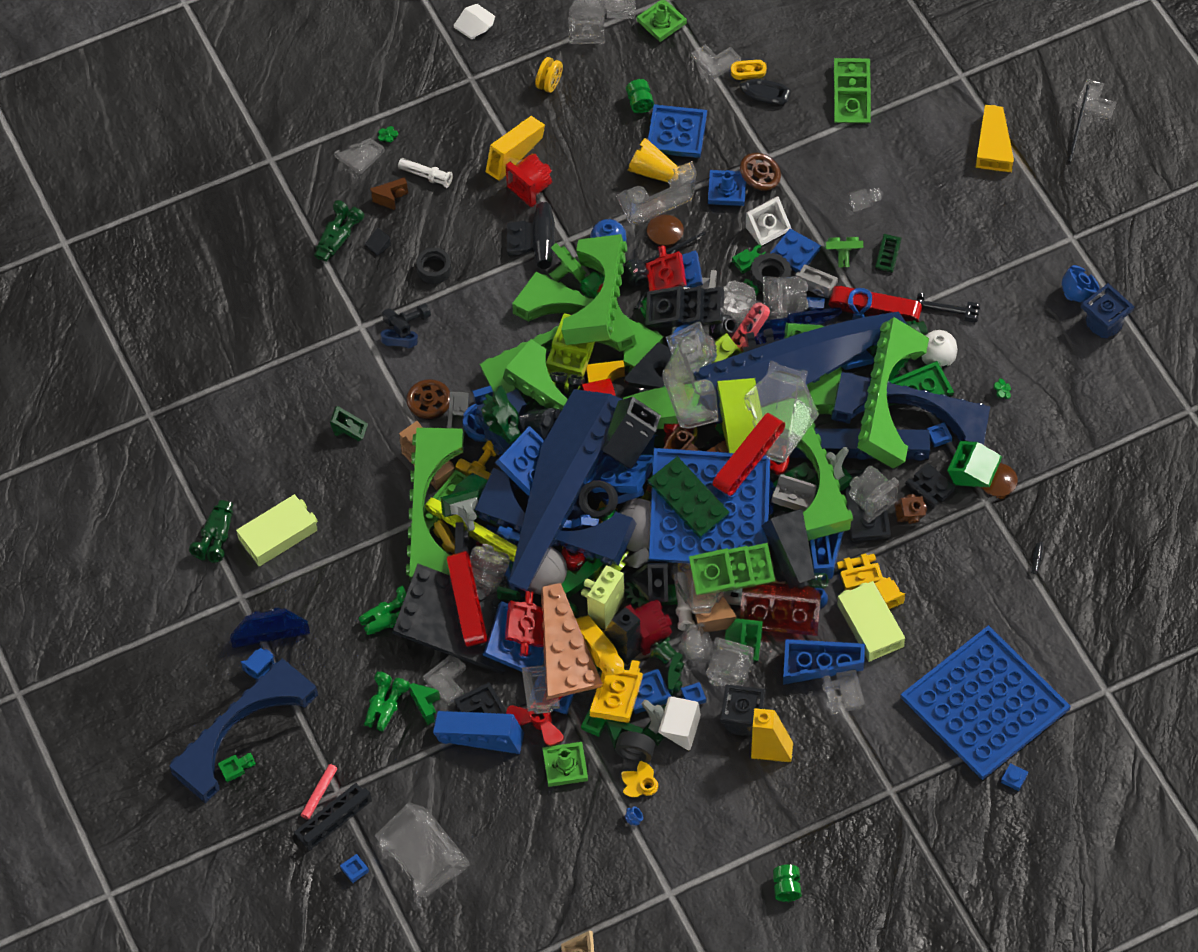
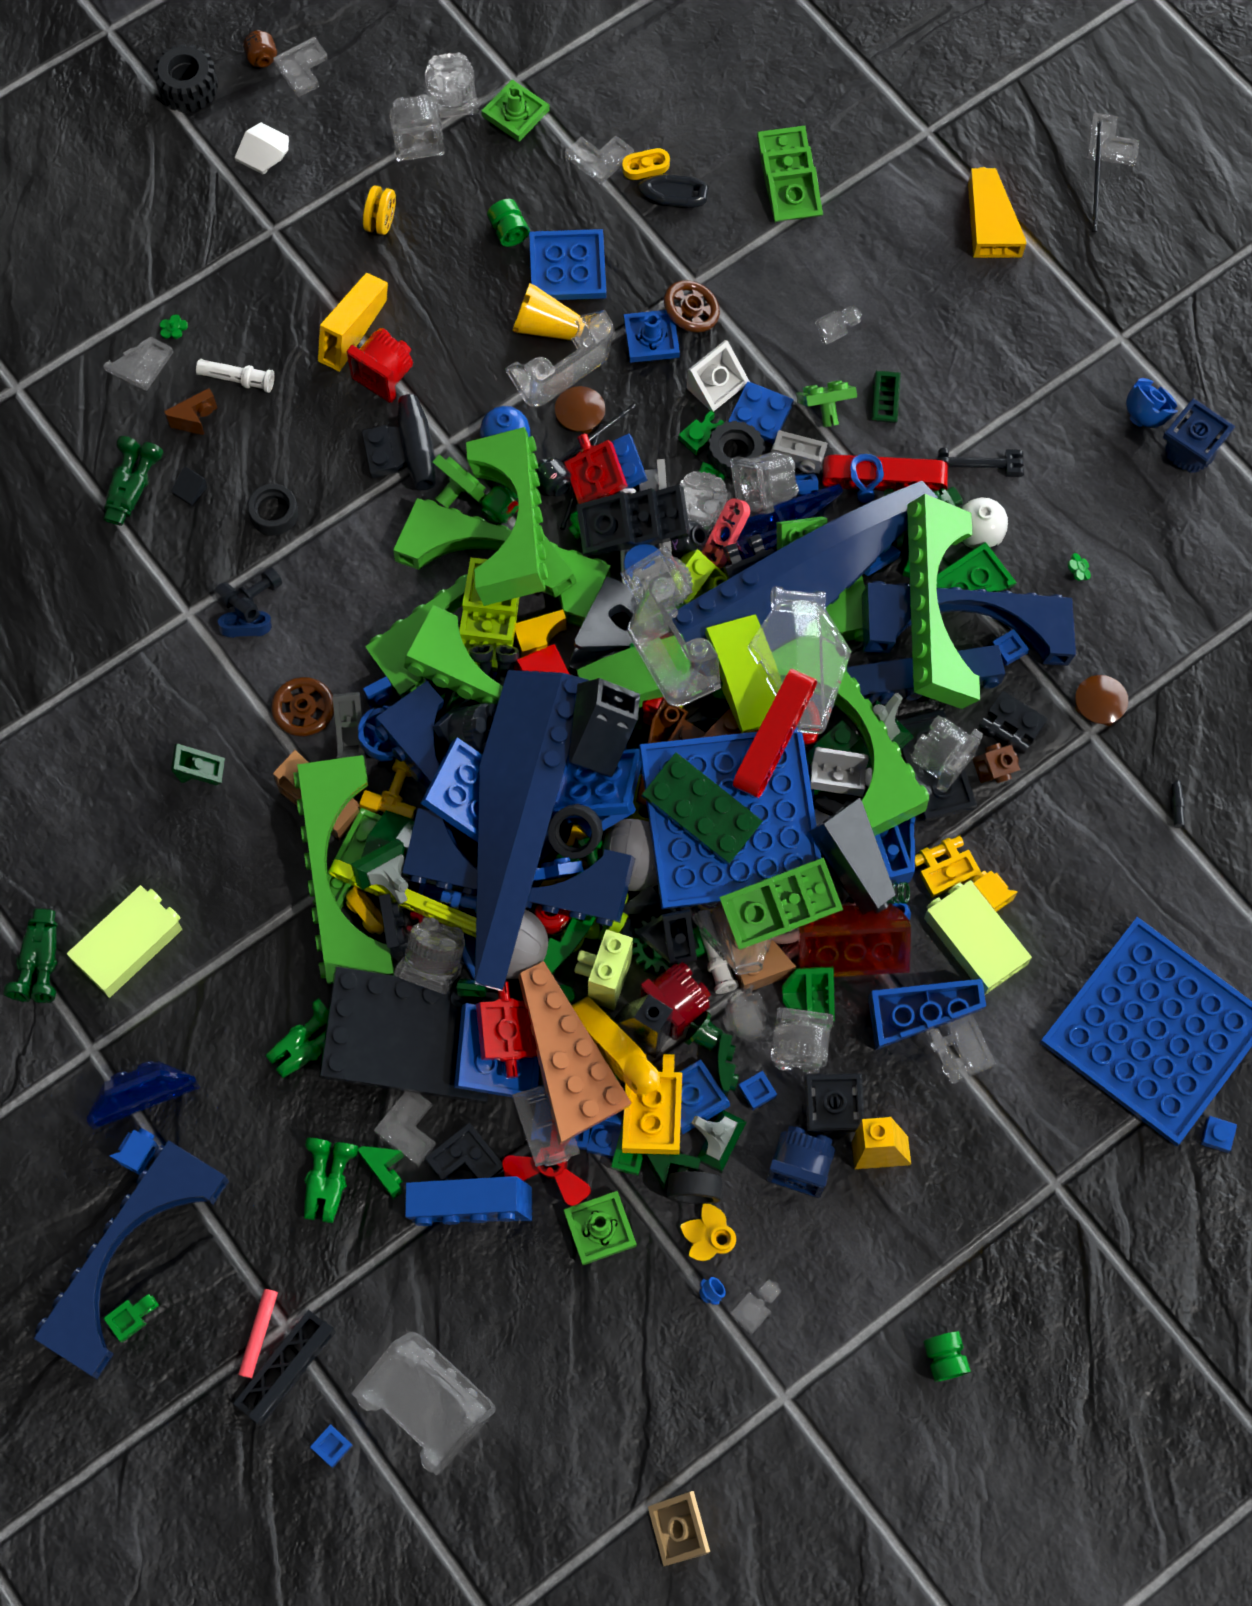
camera: 15 degrees left, 10 degrees up
(467, 599) = (416, 1009): red beam -> none
(501, 415) = (414, 728): dark green piece -> none
(581, 705) = (605, 1136): none -> blue slope
(659, 835) = (751, 1311): none -> clear plate
(680, 721) = (748, 1137): white slope -> none
(712, 743) = (801, 1162): none -> dark blue piece
(973, 465) = (1069, 686): green slope -> none

